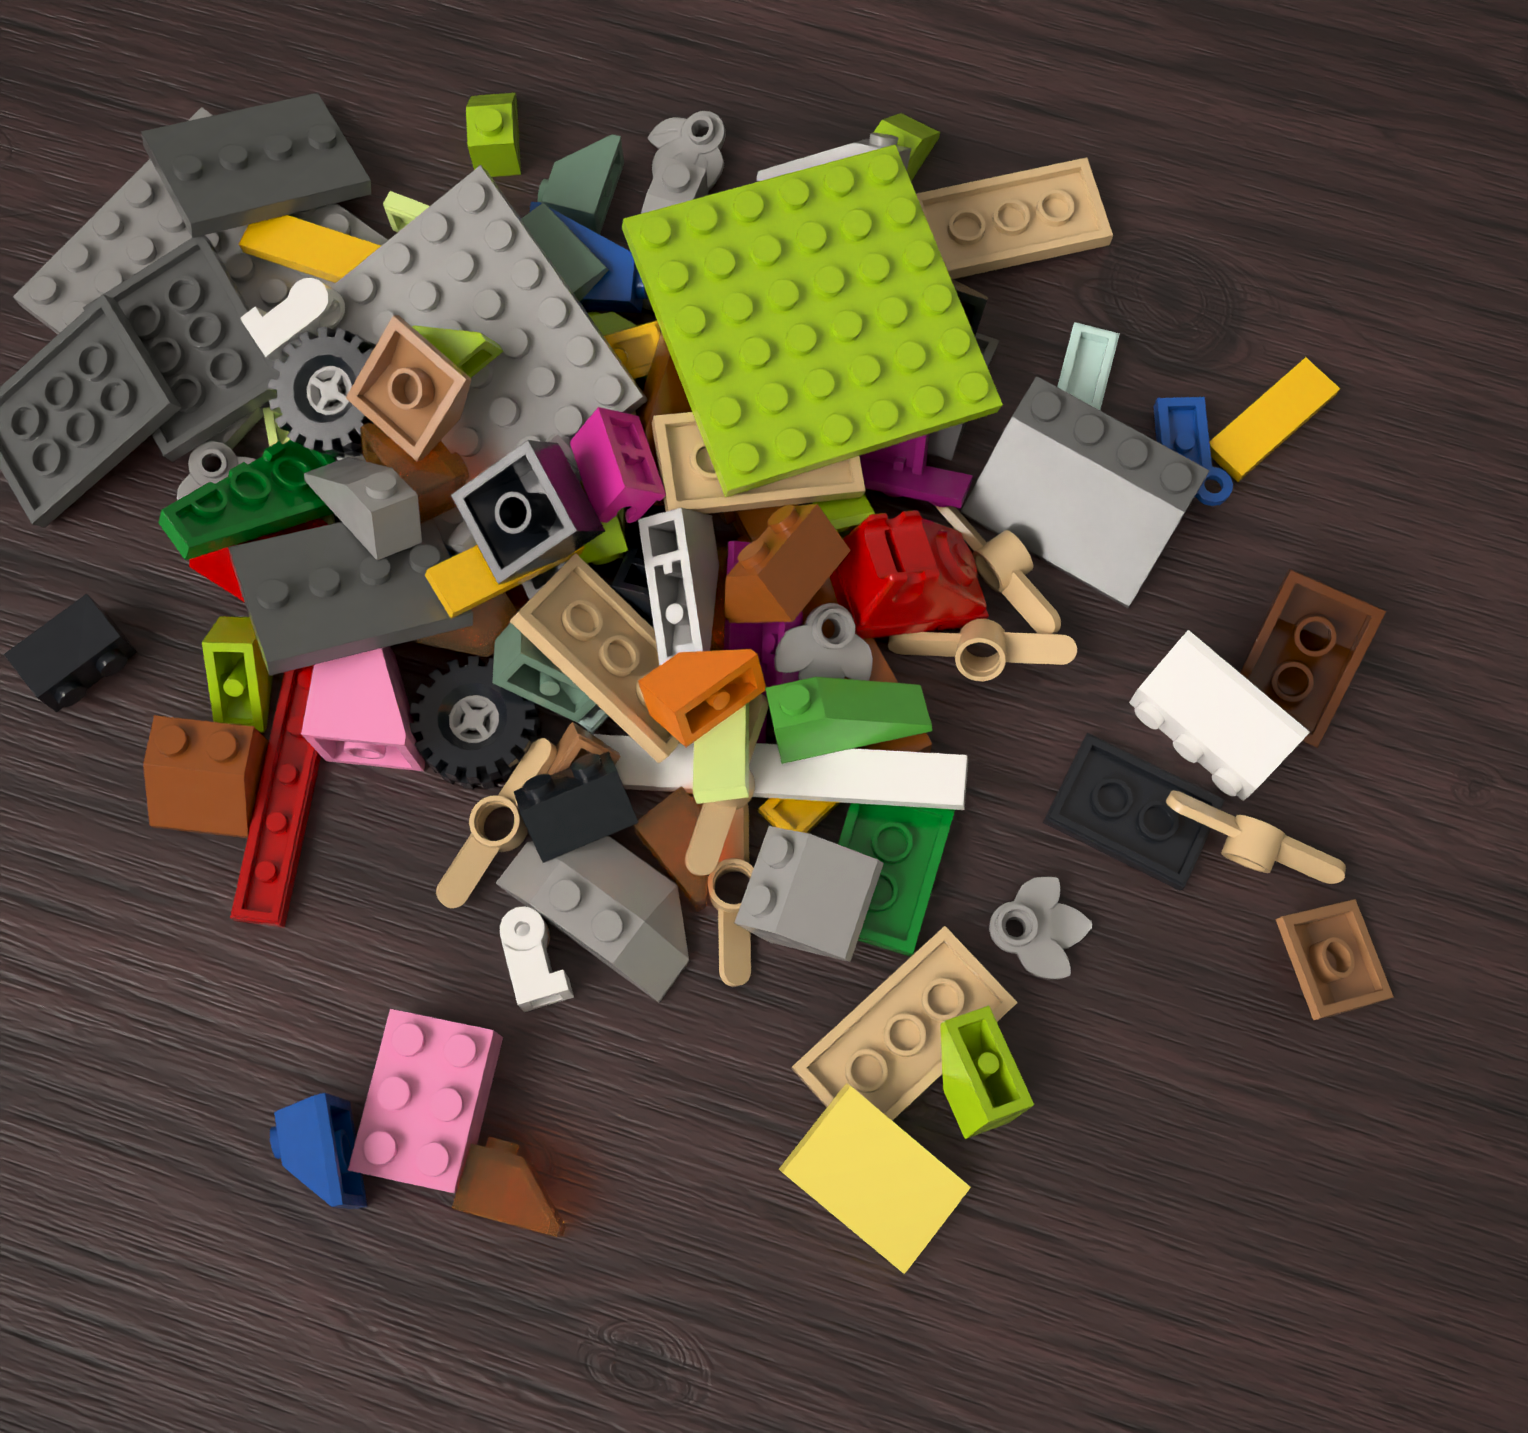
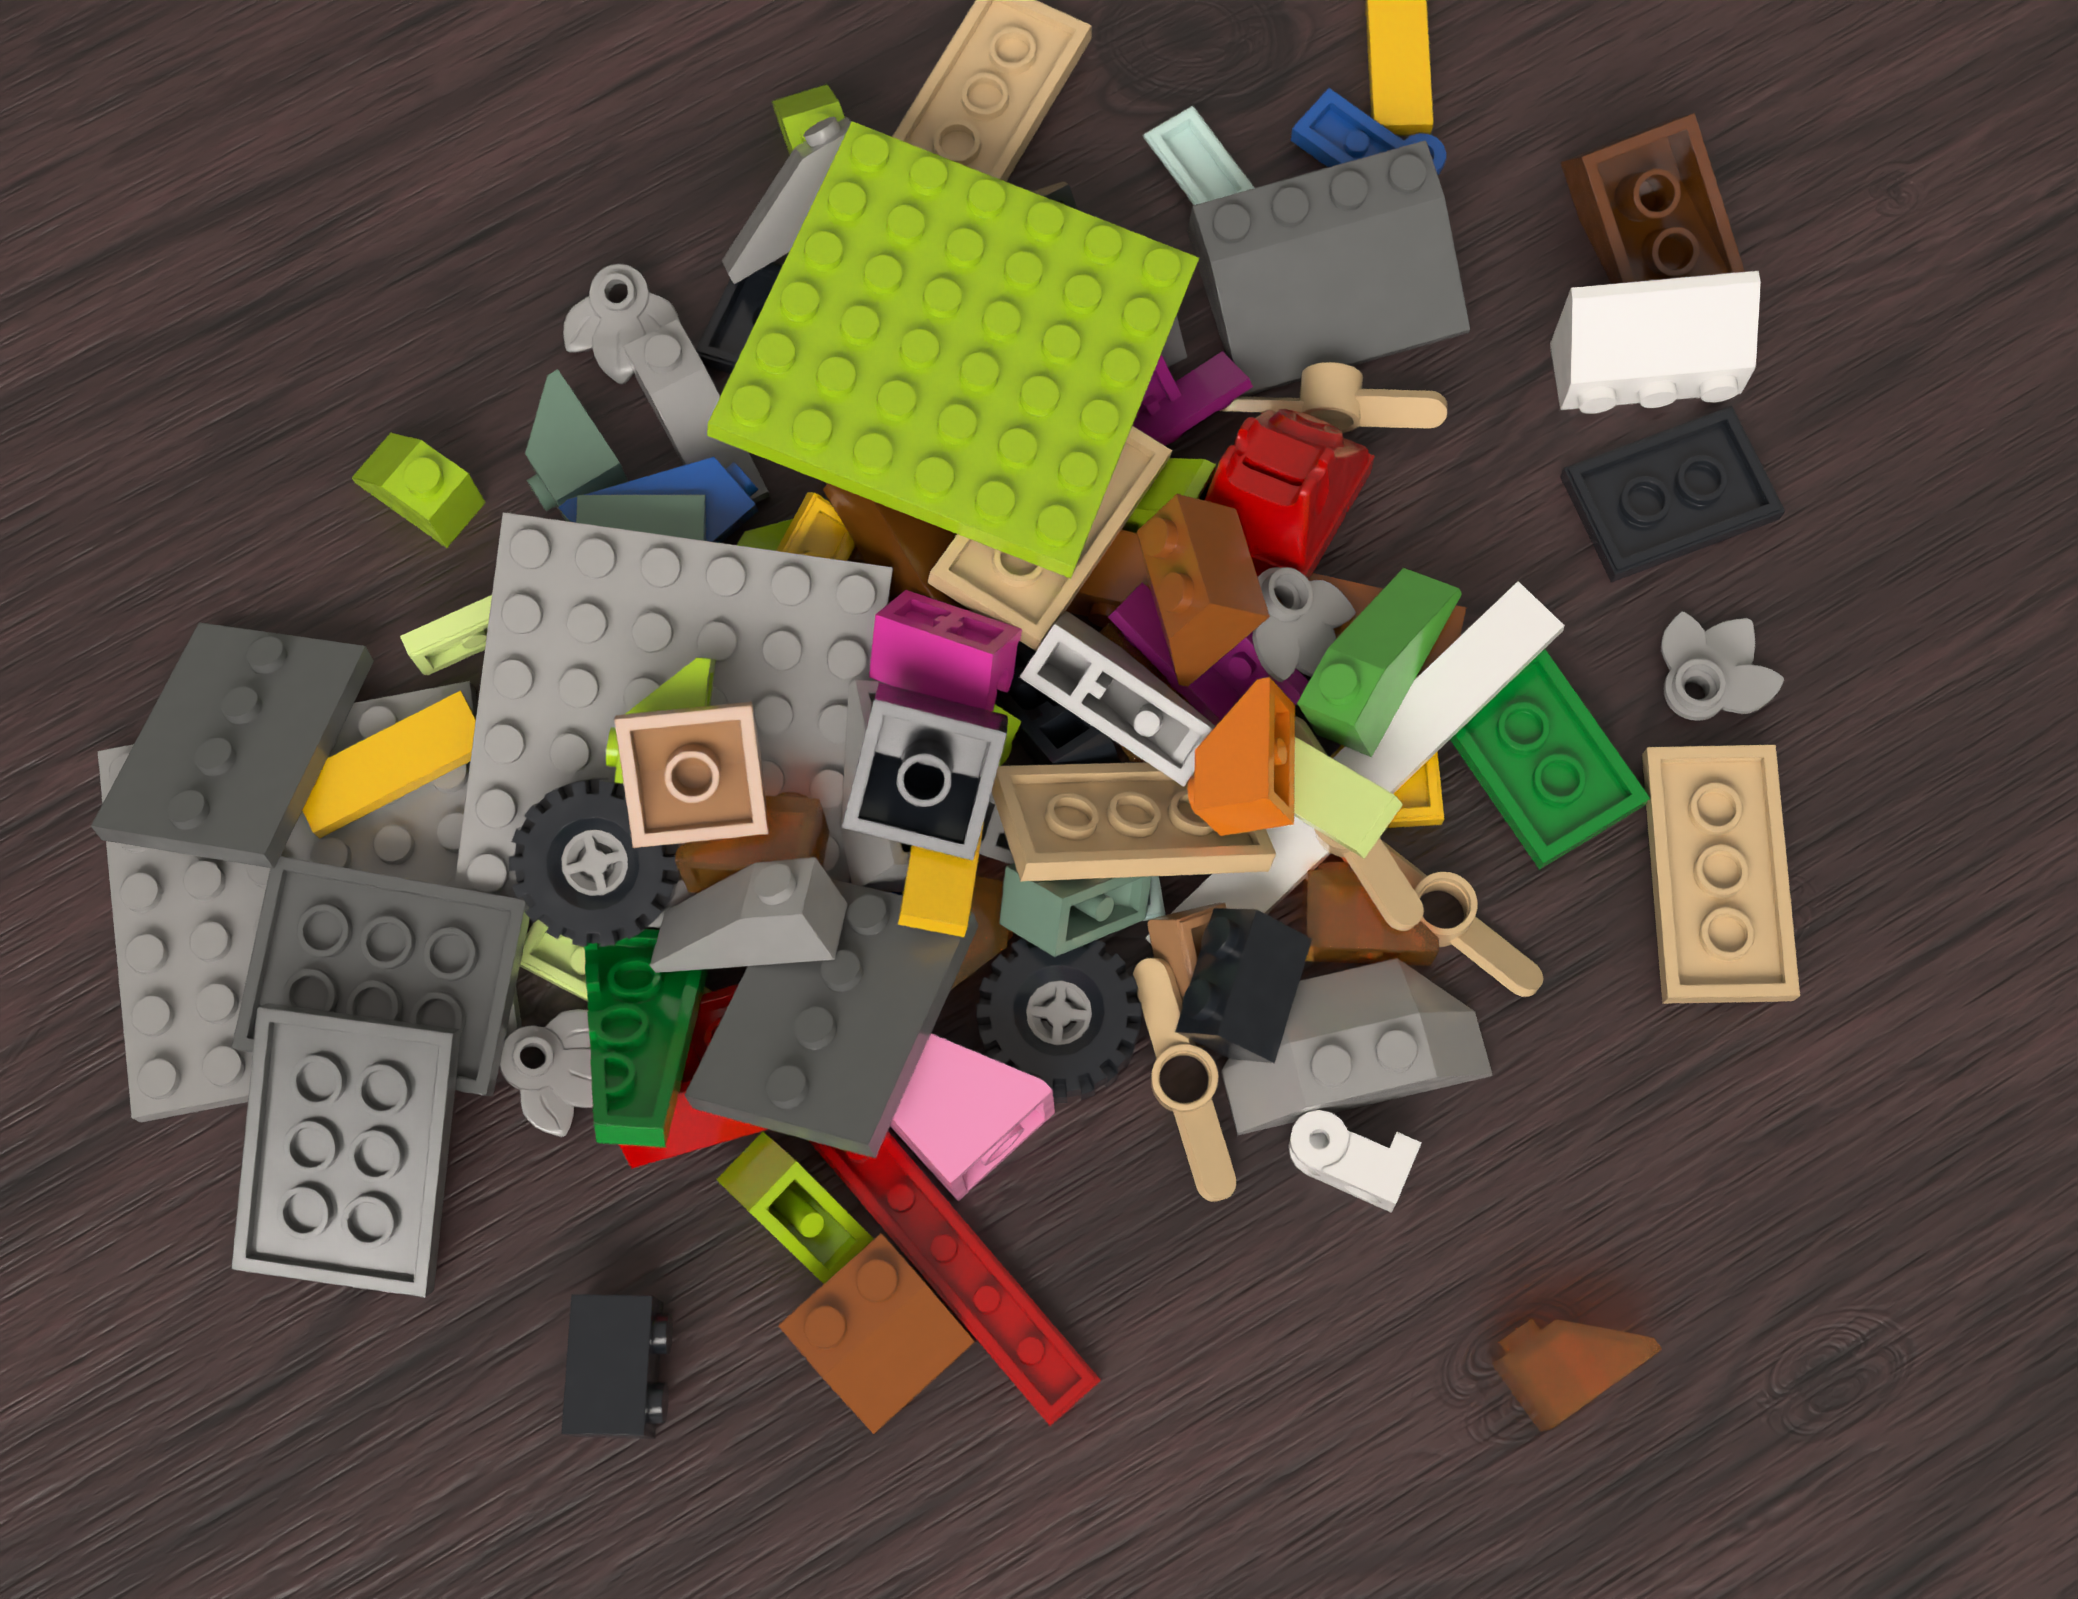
camera: 45 degrees left, 0 degrees up
(308, 307) = (483, 842): white leg -> none
(317, 1146) = (1379, 1515): blue slope -> none
(425, 1100) = (1418, 1374): bright pink brick -> none
(808, 893) = (1521, 839): light grey slope -> none
(875, 1178) = (1838, 1009): light yellow tile -> none
(980, 1073) = (1823, 831): lime slope -> none
(1010, 647) = (1422, 463): tan piece -> none
(1259, 843) = (1800, 411): tan piece -> none
(1334, 959) = (1960, 440): medium nougat slope -> none

